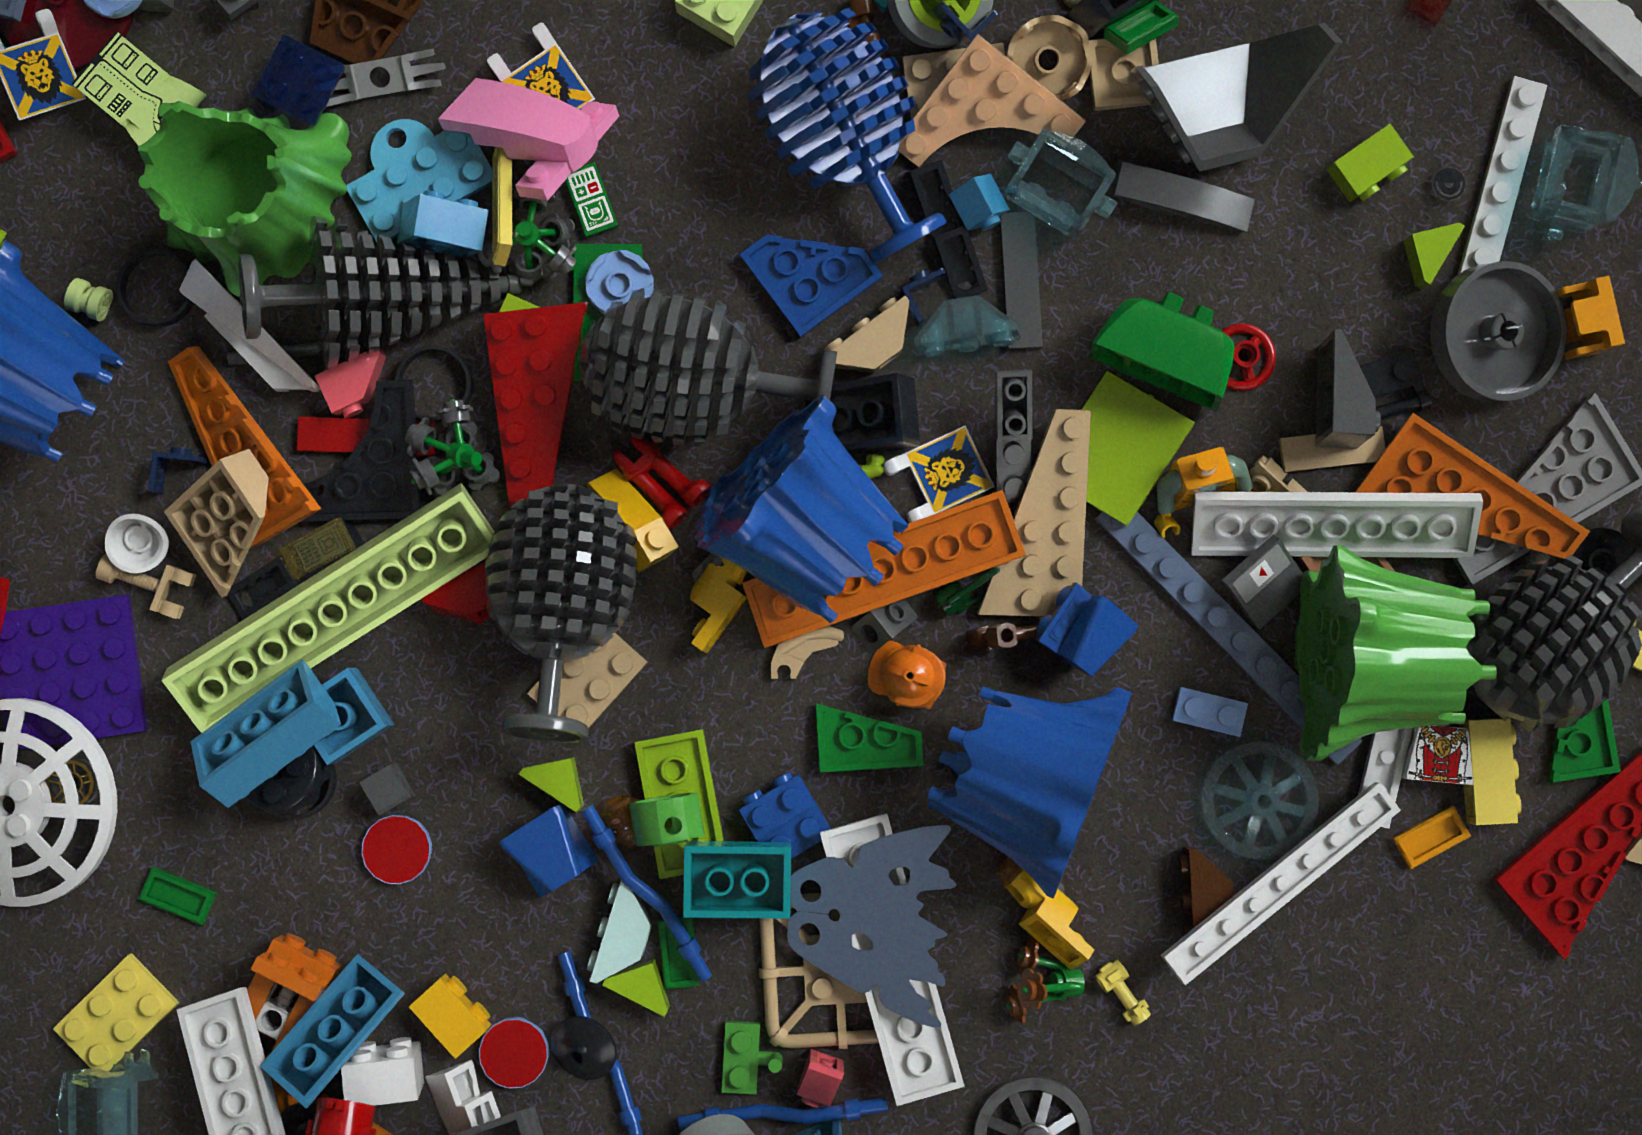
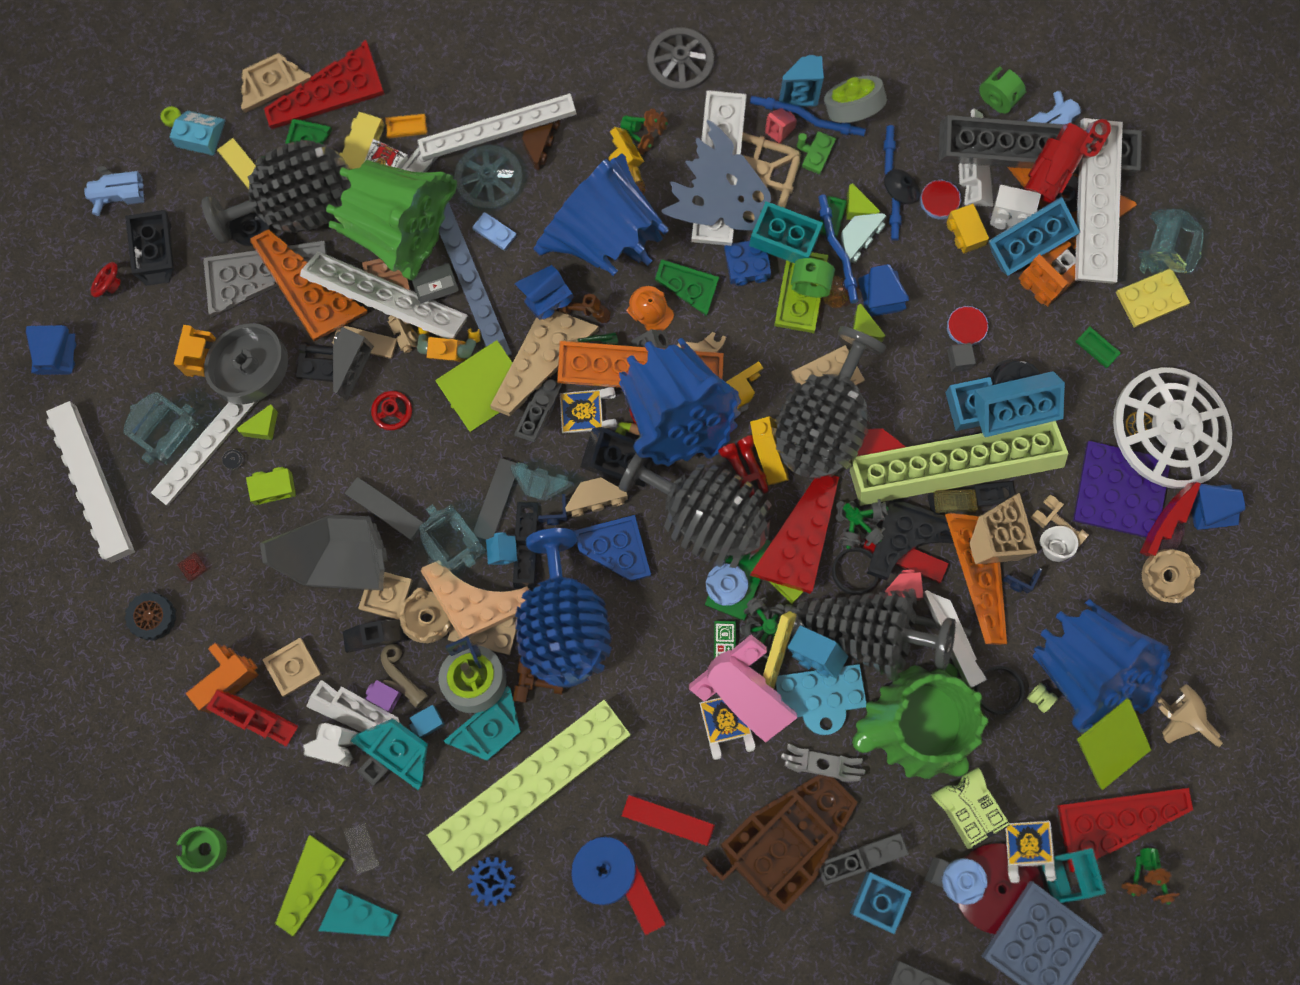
camera: 155 degrees left, 10 degrees down
(298, 81) = (872, 776): clear blue bracket -> none
(1112, 977) = (604, 119): light yellow bar -> none
(1141, 27) = (364, 613): green tile -> none
(1168, 348) = (430, 425): green hips -> none

